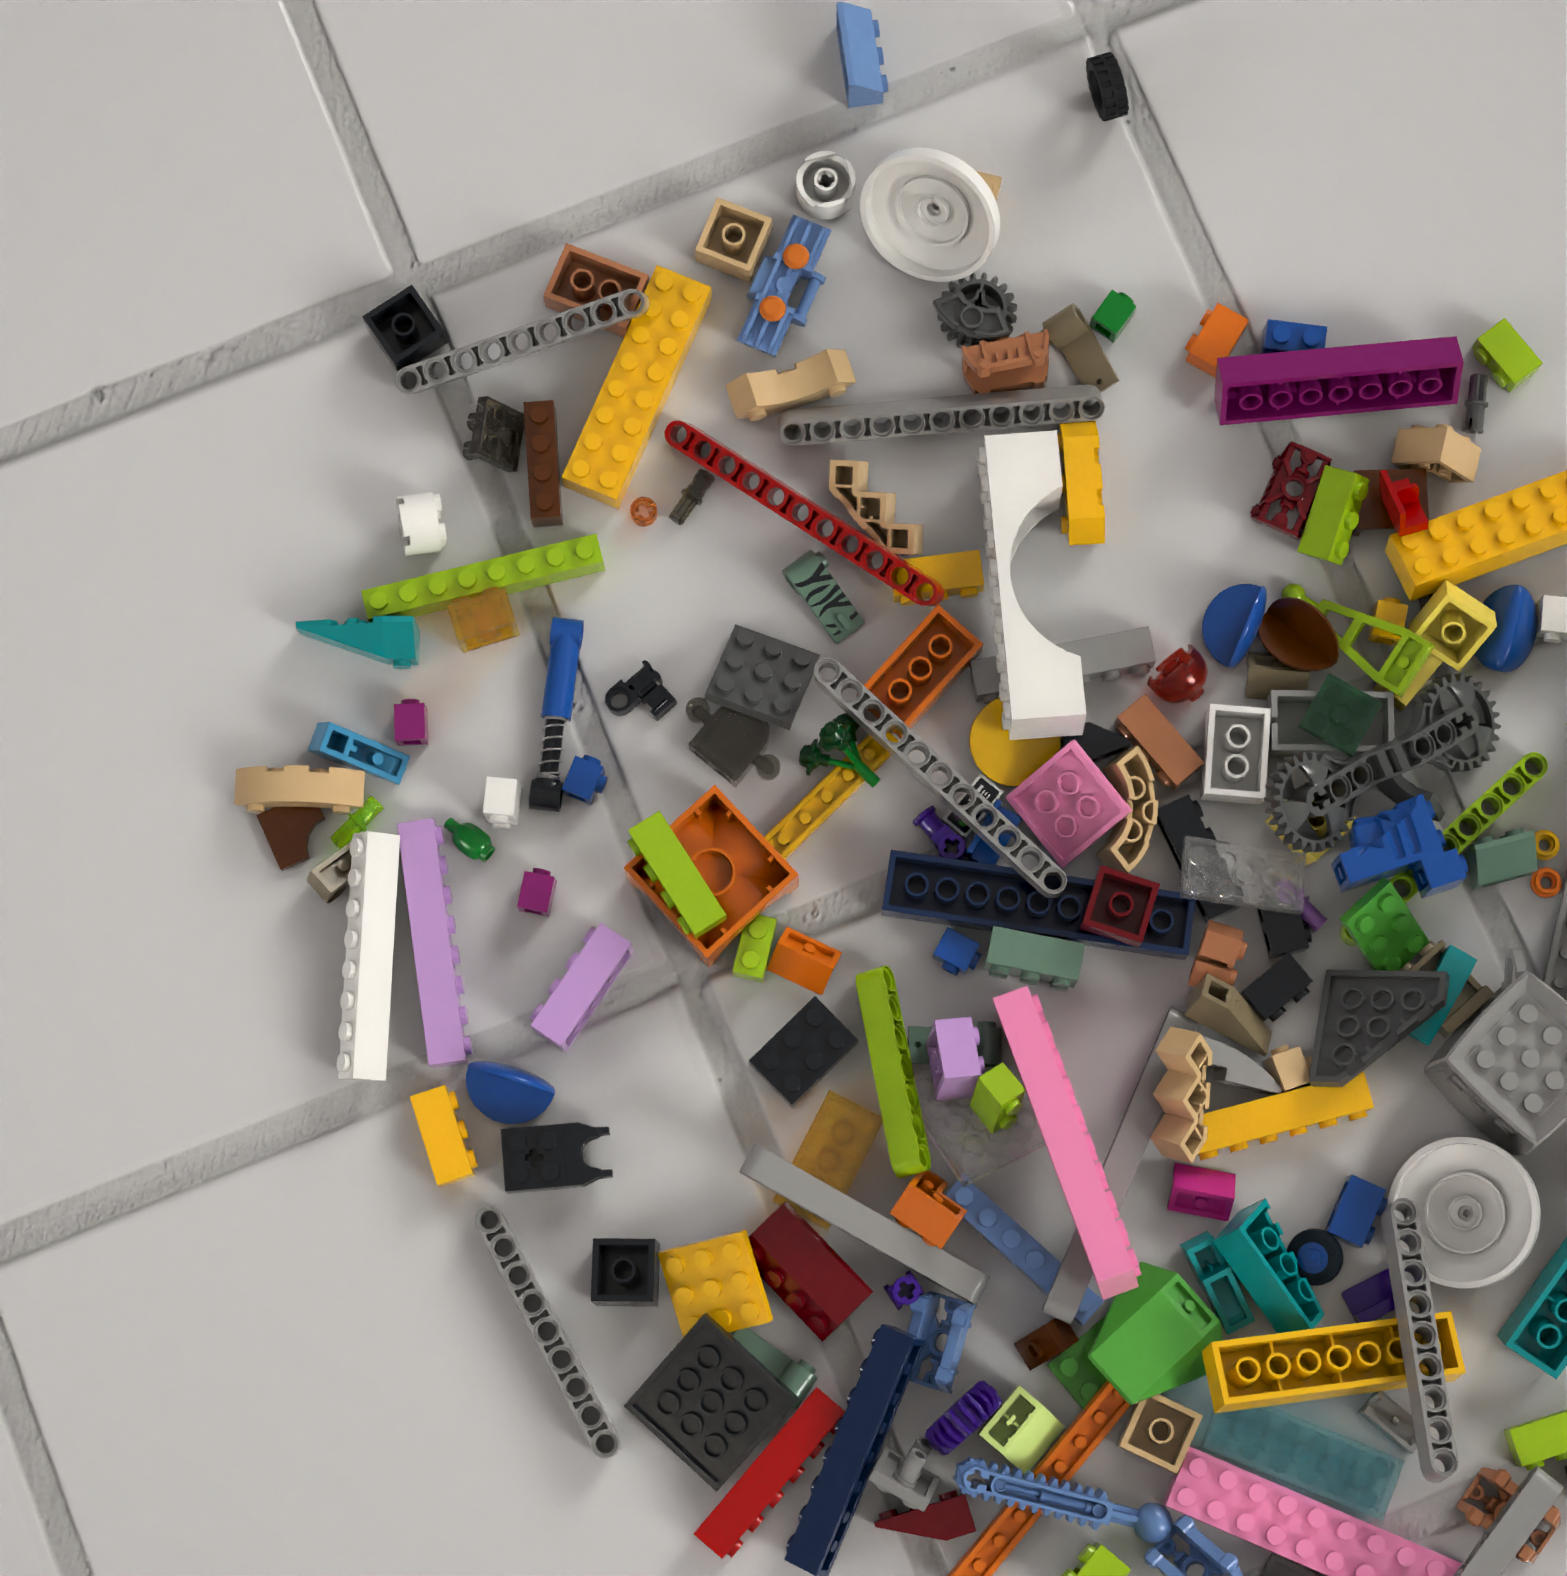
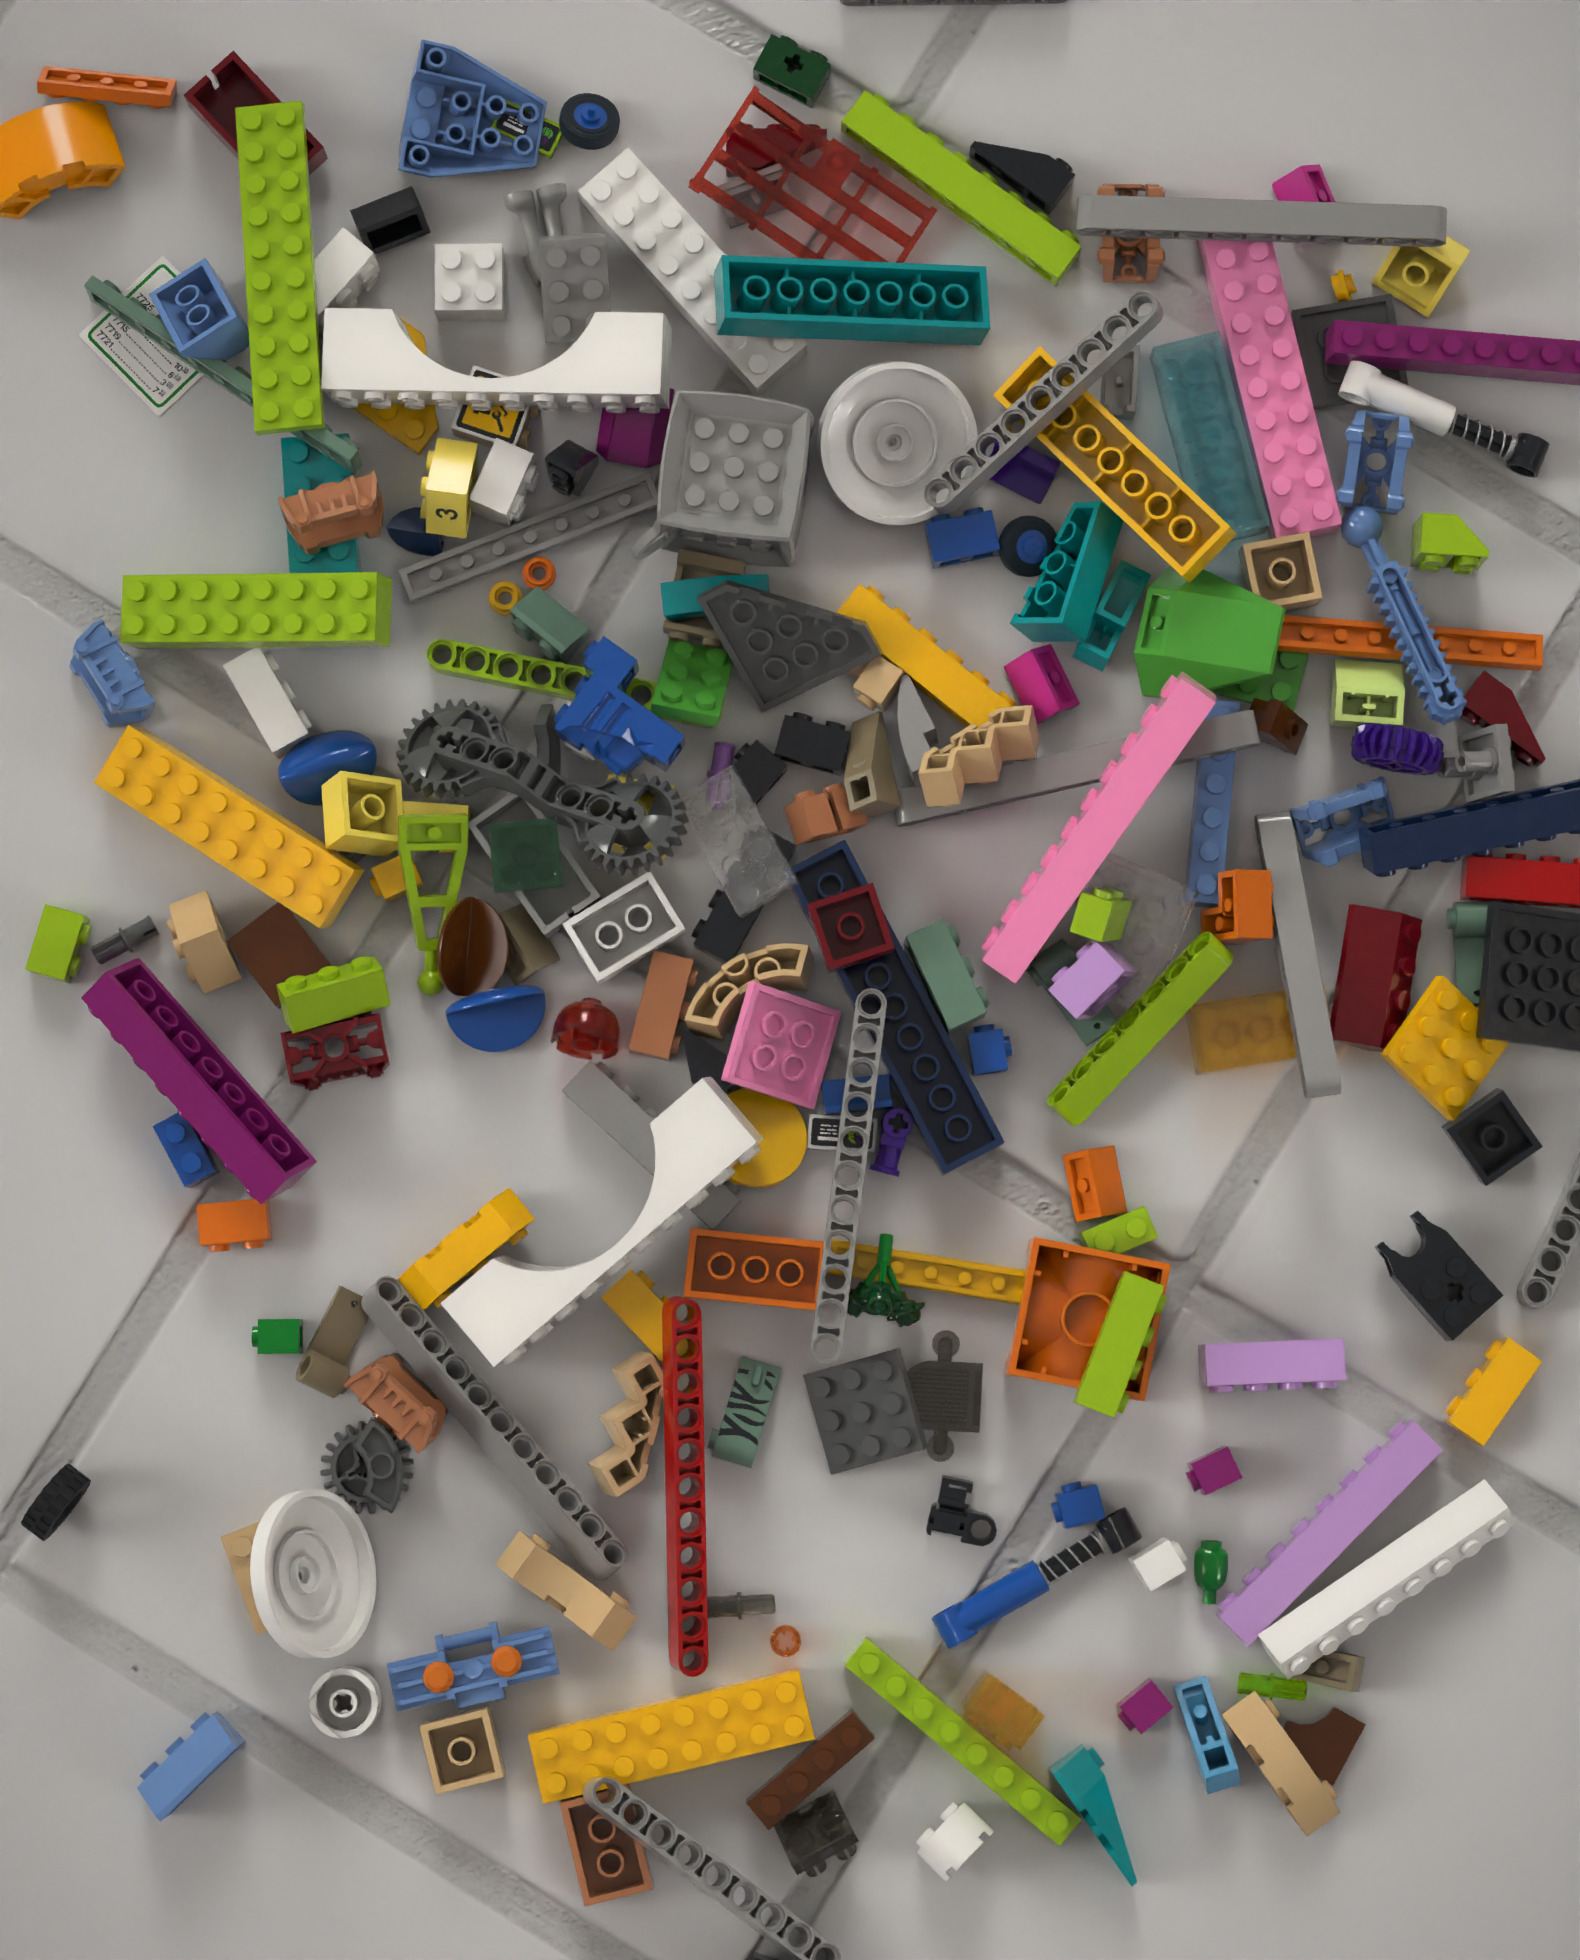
camera: 130 degrees left, 5 degrees up
(507, 1092) = (1410, 1363): blue piece -> none
(803, 1051) = (1180, 1122): black brick -> none
(904, 1290) = (1323, 879): dark purple connector -> none
(1402, 504) = (282, 935): red panel -> none

